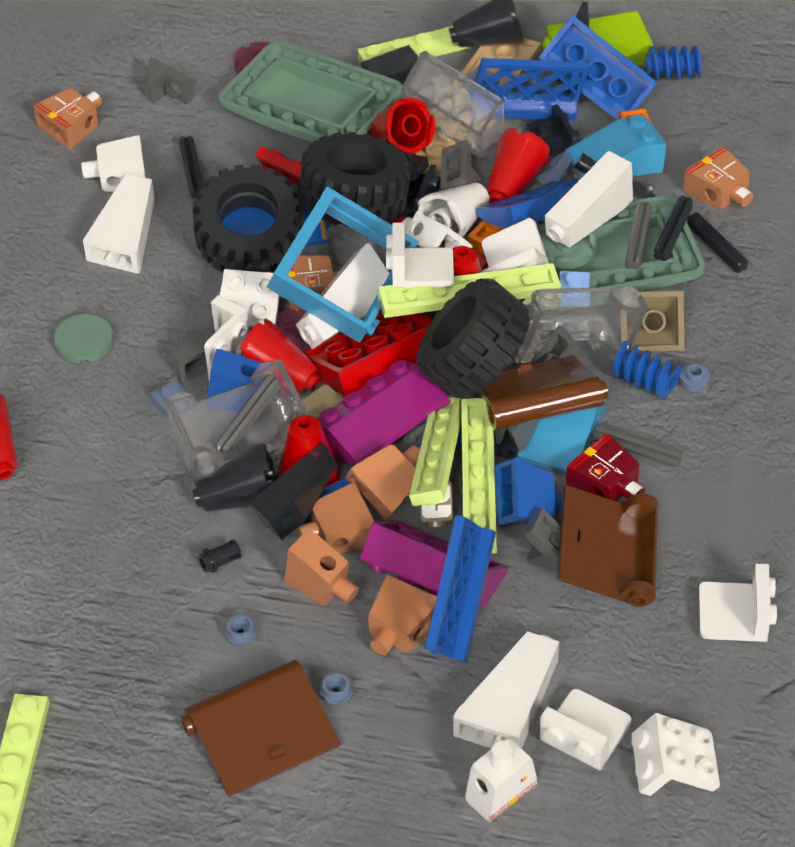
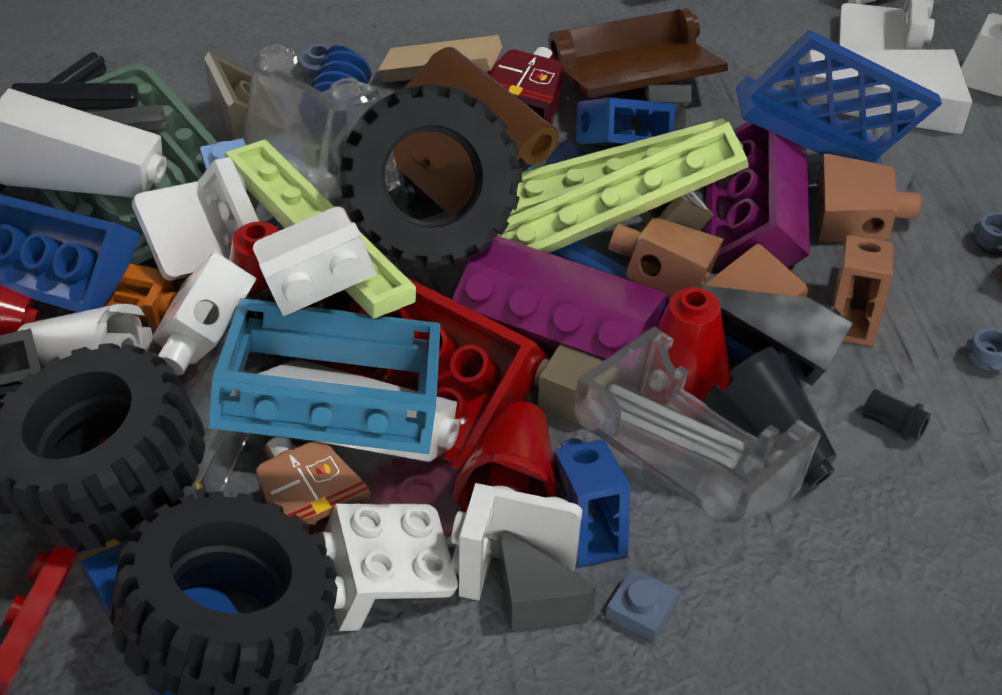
camera: 115 degrees left, 0 degrees up
(653, 429) = (407, 61): none -> tan tile

